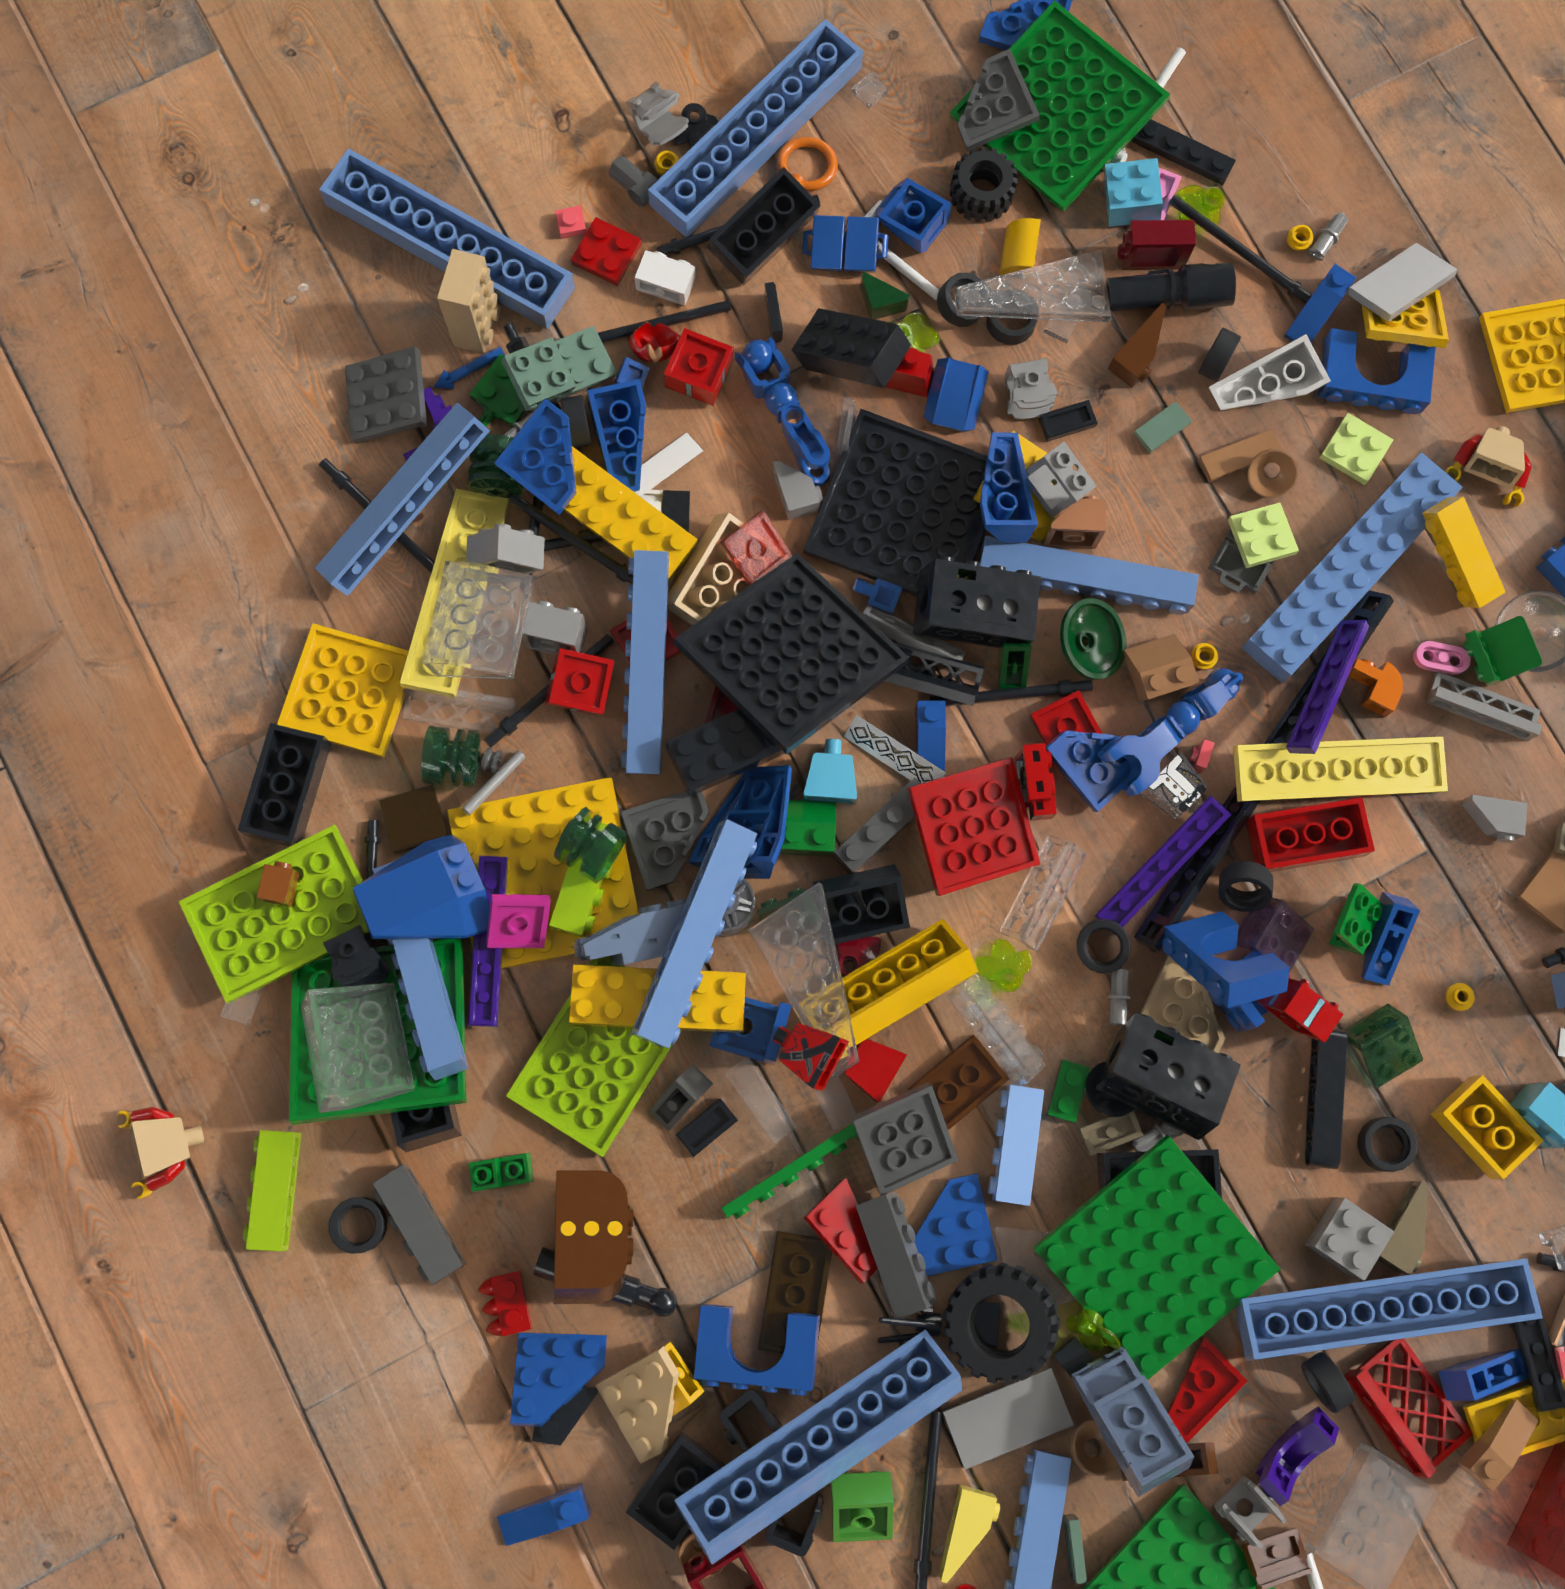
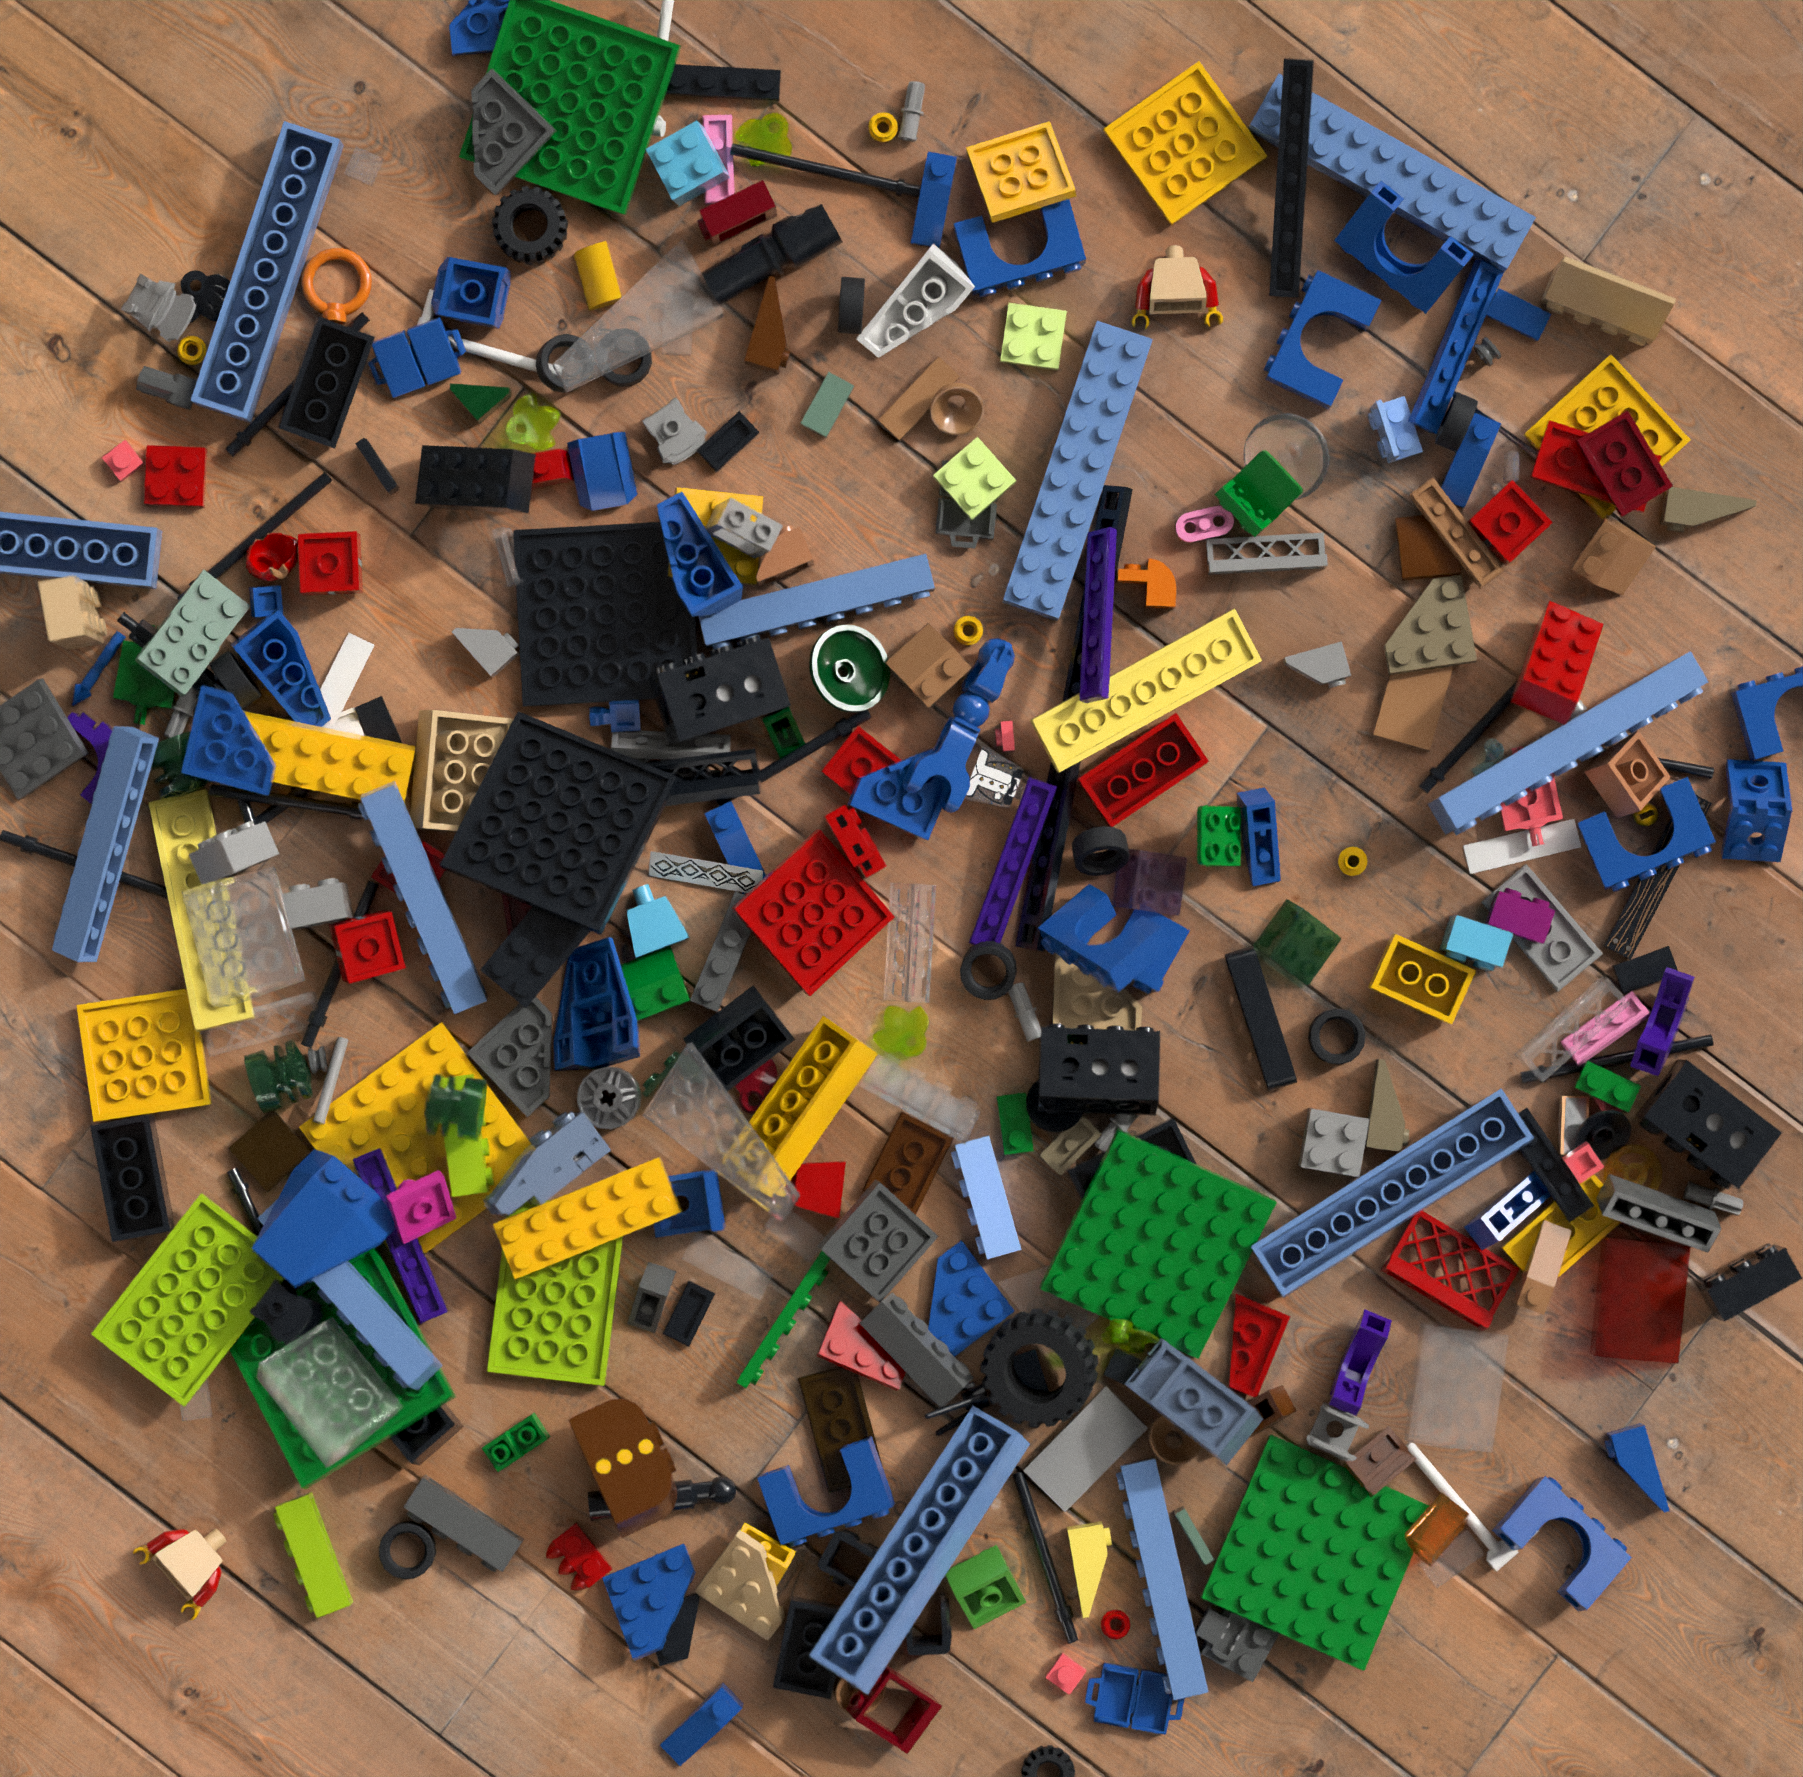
camera: 20 degrees left, 10 degrees up
(278, 884) = (178, 1275): dark orange brick -> none
(665, 277) = (250, 479): white brick -> none
(694, 934) = (594, 1145): medium blue brick -> none
(756, 548) = (476, 729): clear red tile -> none
(782, 400) = (431, 561): blue piece -> none
(810, 1053) = (751, 1209): torso -> none
(1303, 1010) = (1199, 947): red container -> none
(1328, 1382) = (1362, 1284): black tyre -> none
(1402, 282) = (1006, 136): light grey tile -> none
(1463, 552) = (1179, 409): yellow brick -> none

